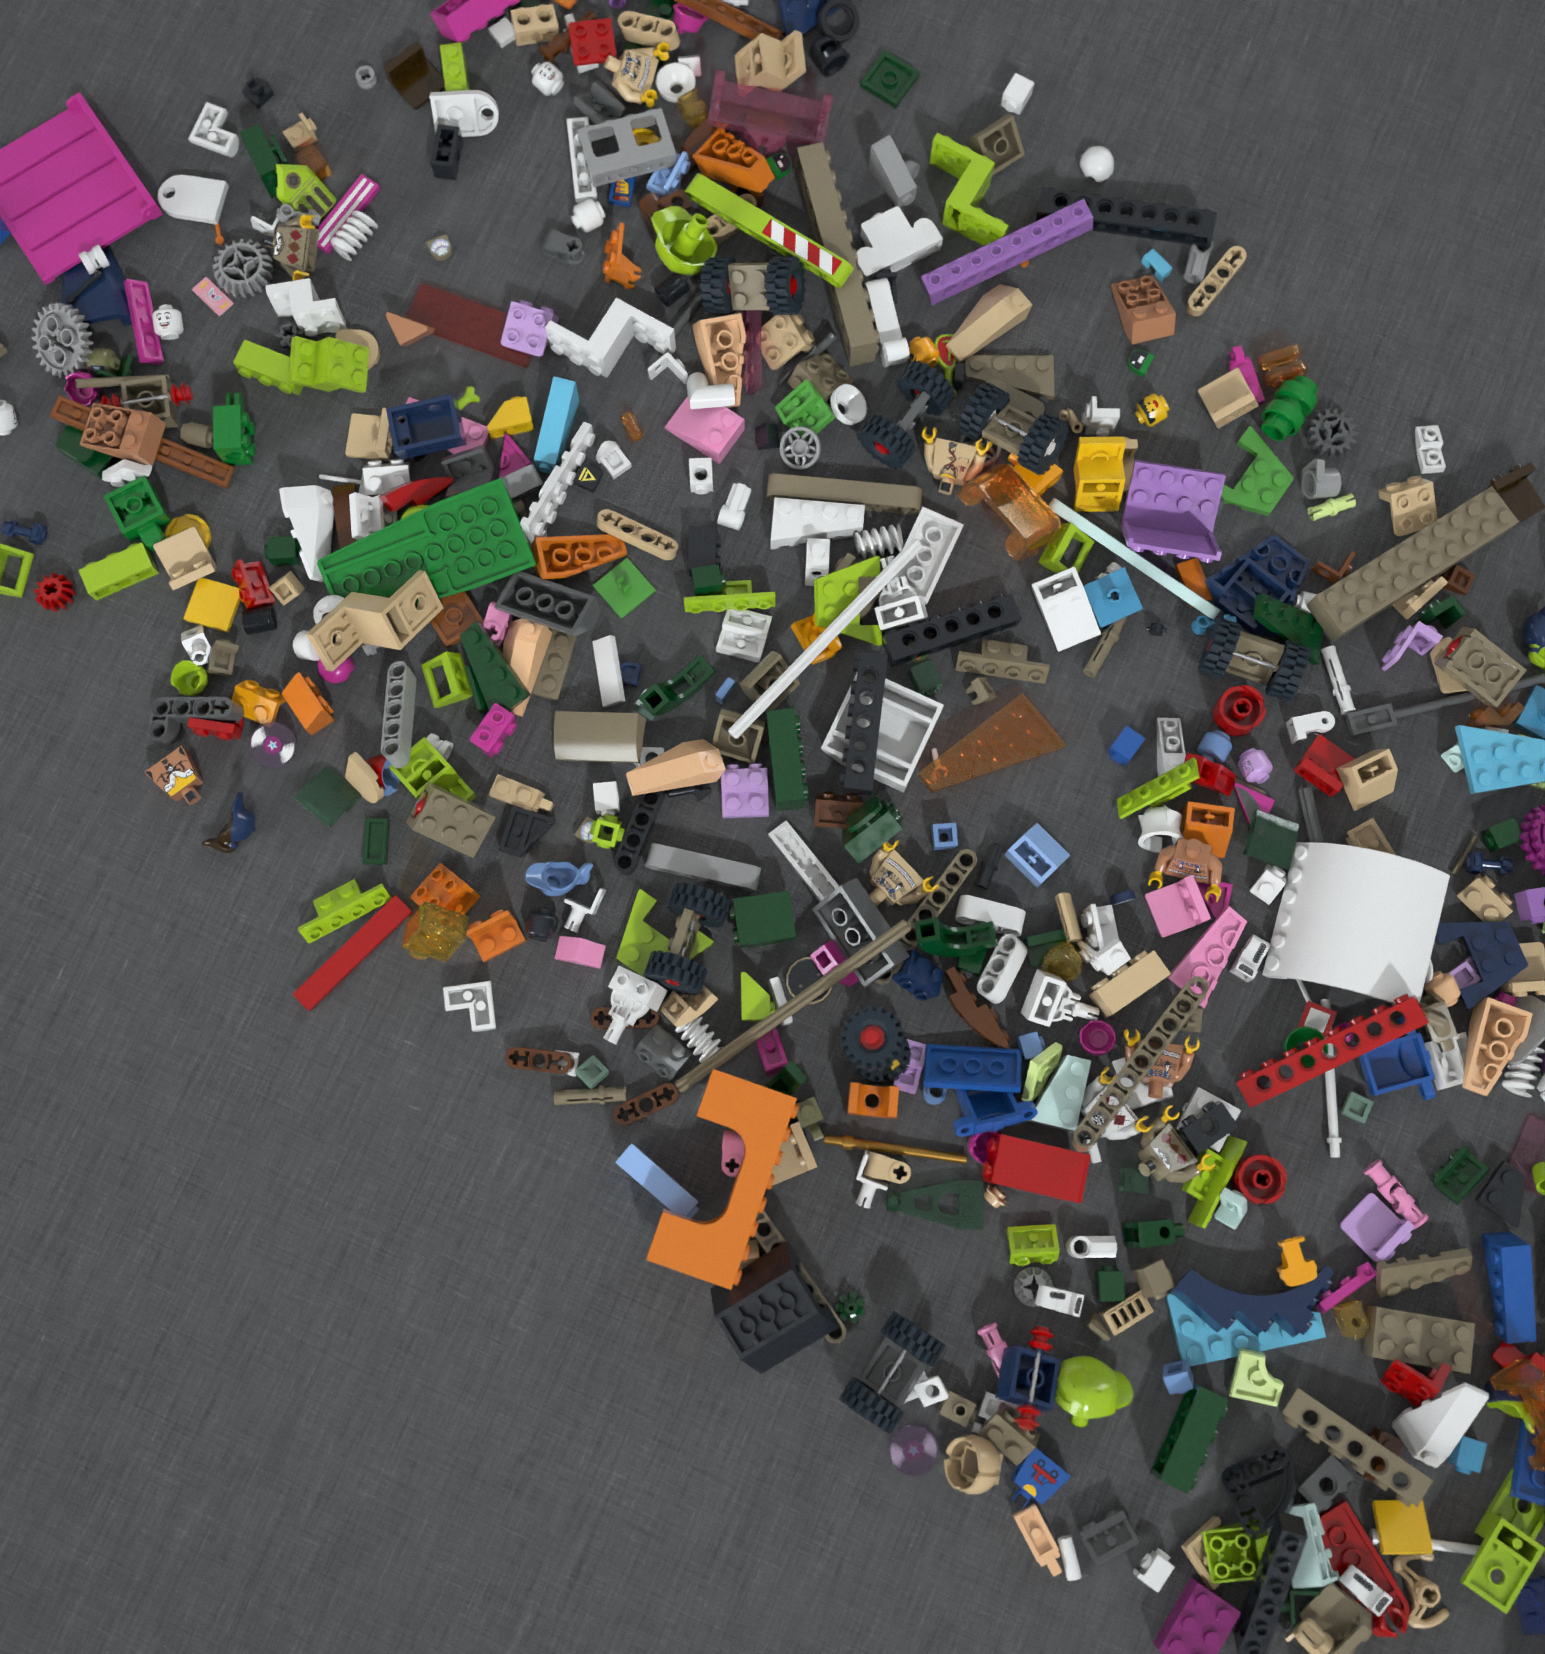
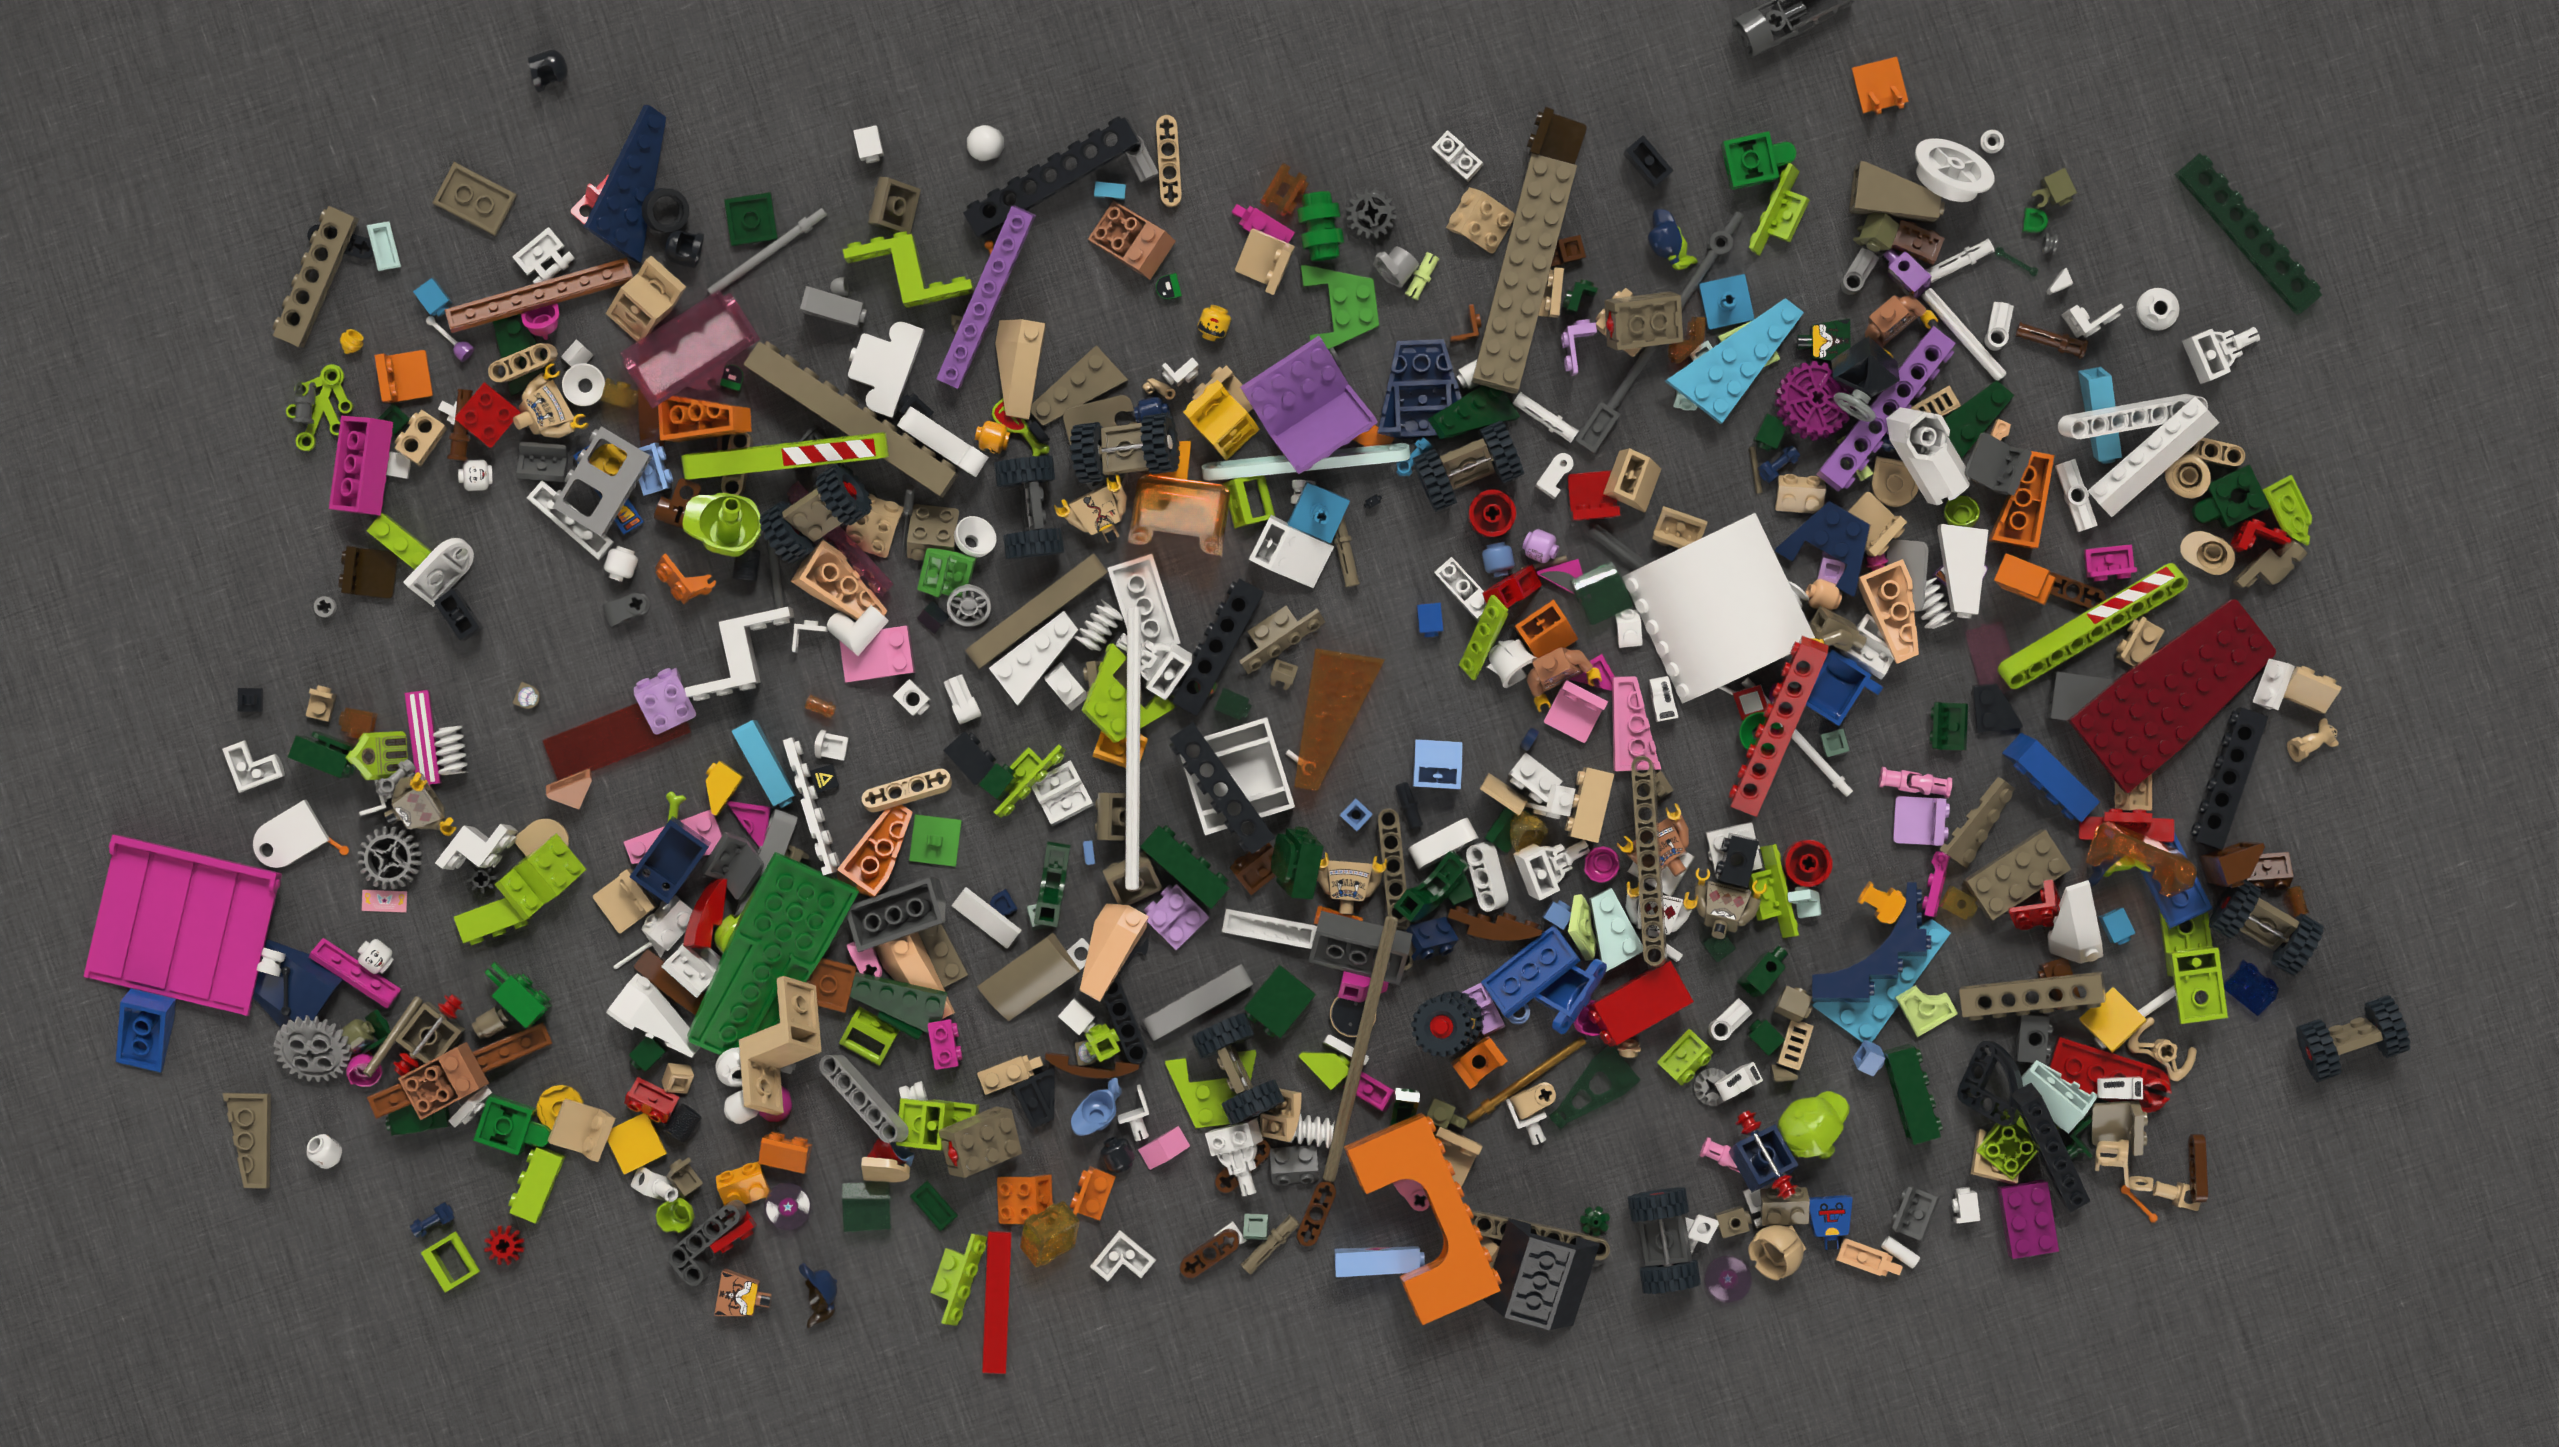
camera: 40 degrees left, 10 degrees up
(602, 863) = (1062, 1062): none -> reddish brown slope
(922, 112) = (804, 225): none -> light grey bar

